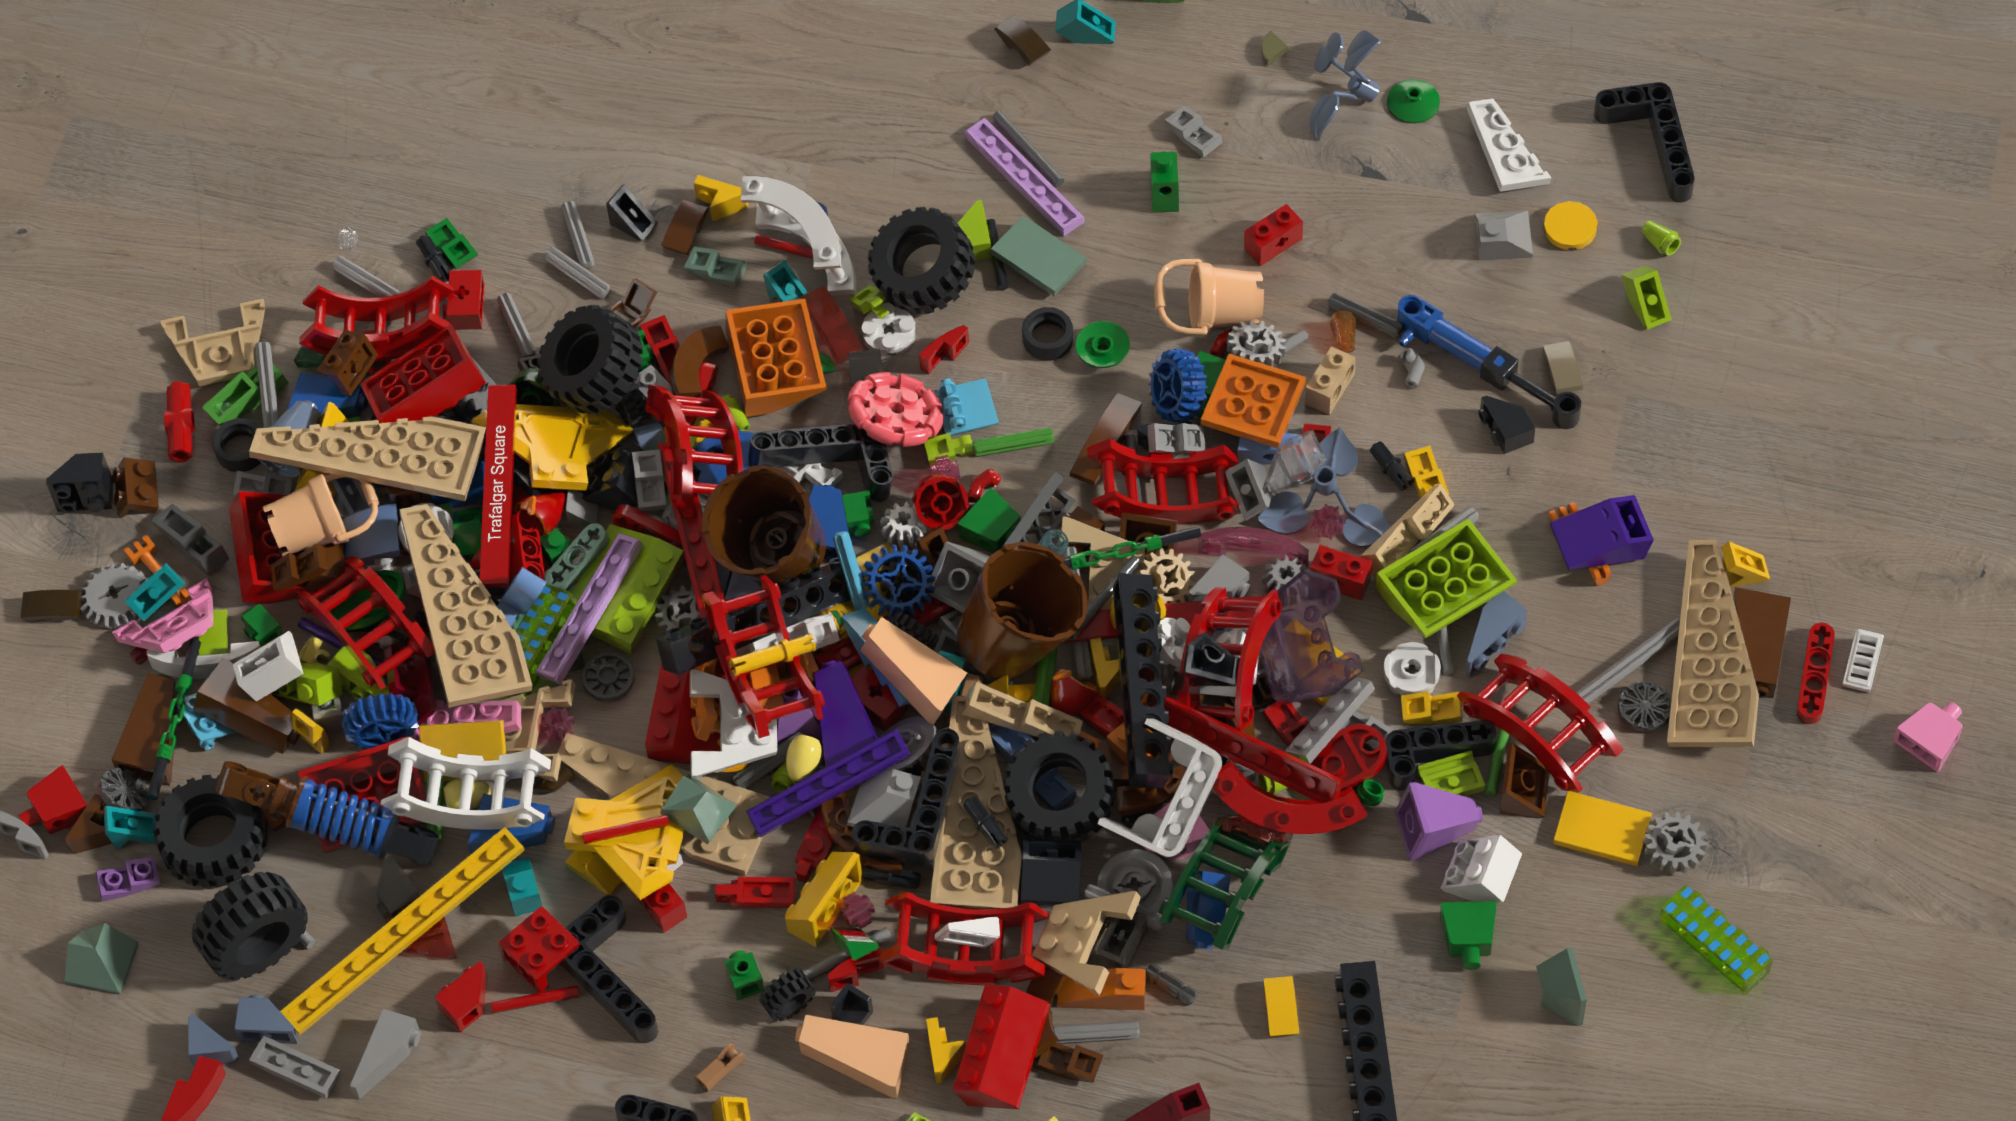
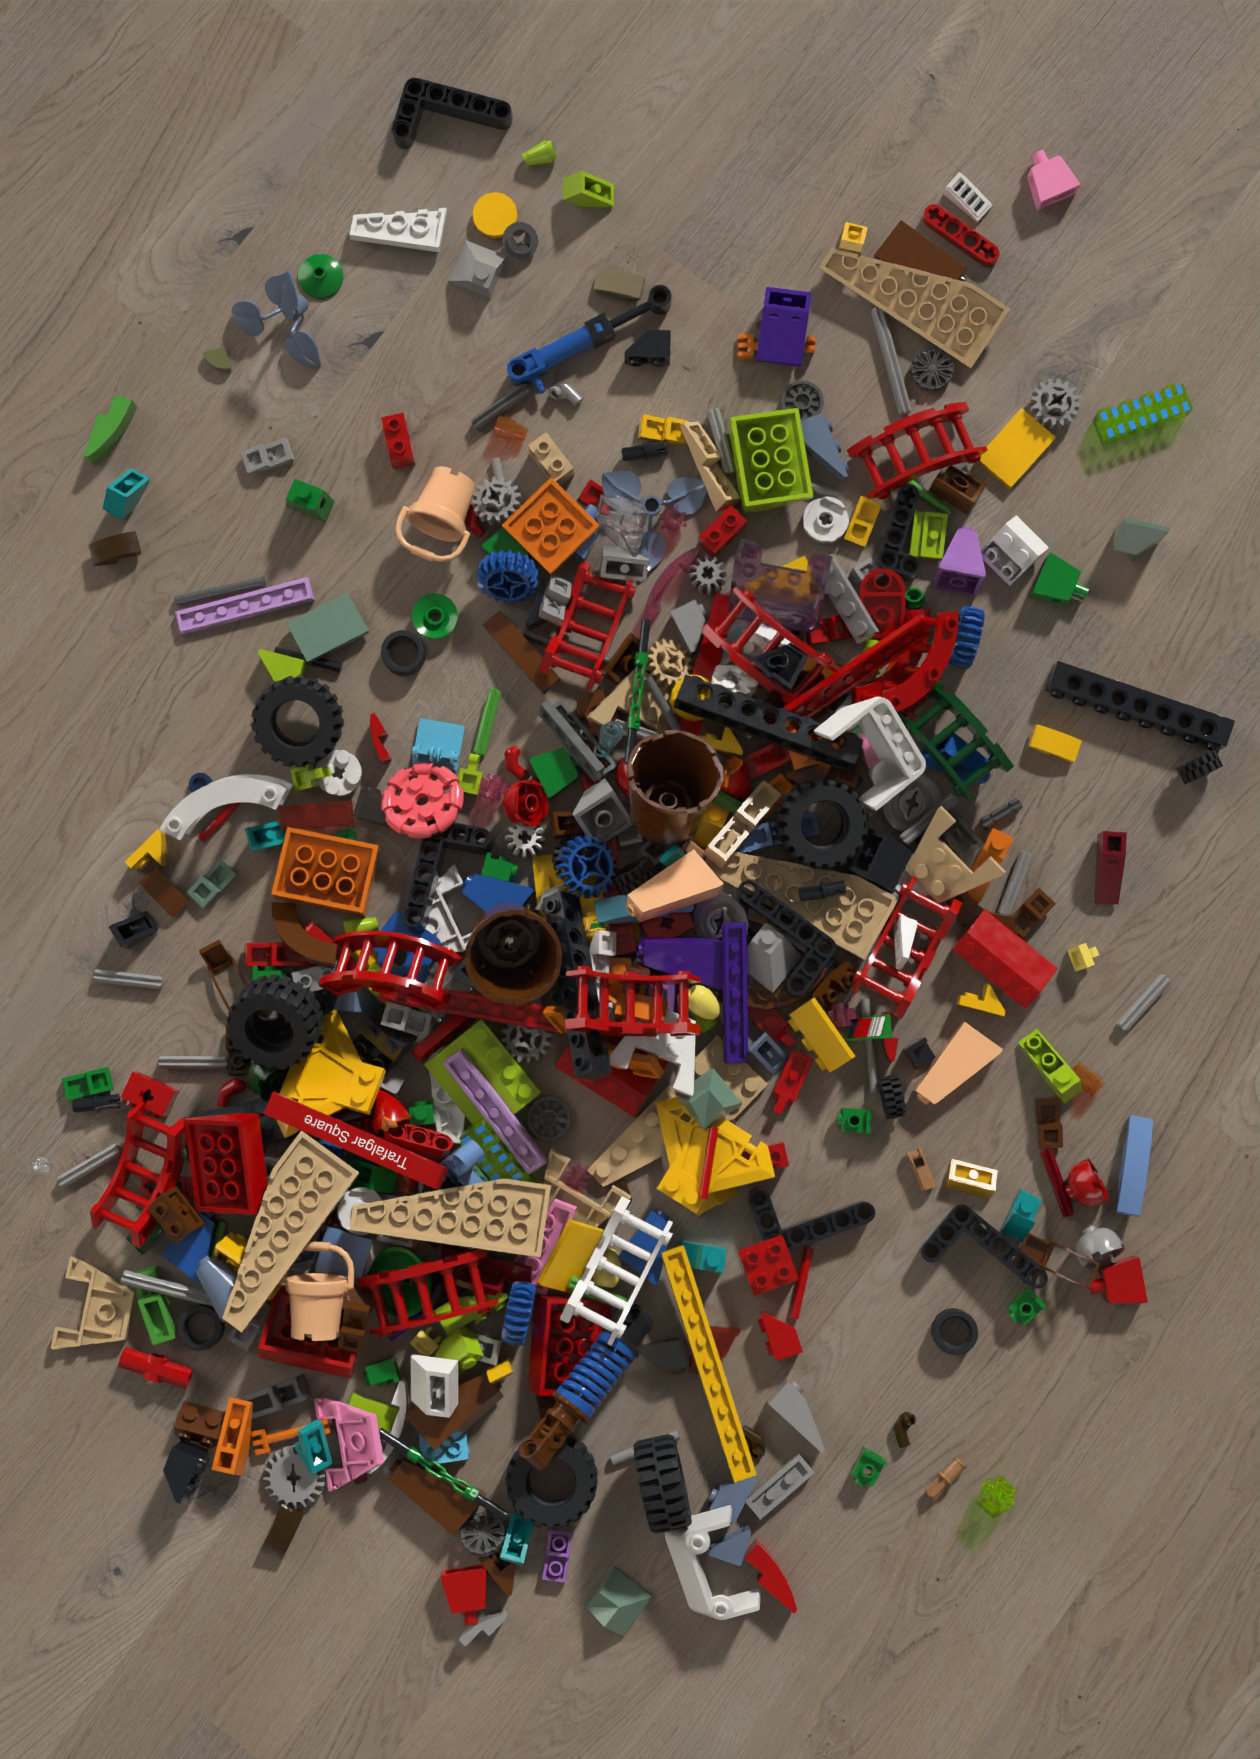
camera: 65 degrees left, 25 degrees up
(128, 519) = (234, 1438): none -> orange slope
(167, 1010) = (684, 1548): none -> white windscreen
(336, 1025) = (756, 1442): none -> dark brown arm
(500, 367) = (229, 1088): none -> red arm
(577, 272) = (164, 994): light grey axle -> none
(590, 556) = (456, 1115): sand green beam -> none
(779, 851) = (768, 1053): none -> sand blue slope
(783, 651) = (637, 985): yellow pin -> none
(850, 569) = (566, 899): medium azure axle -> none
(883, 886) = (835, 983): none -> reddish brown slope
(1351, 855) = (968, 637): none -> blue gear
(1535, 594) = (802, 399): none -> dark grey wheel
(1546, 247) = (530, 239): none -> dark grey gear

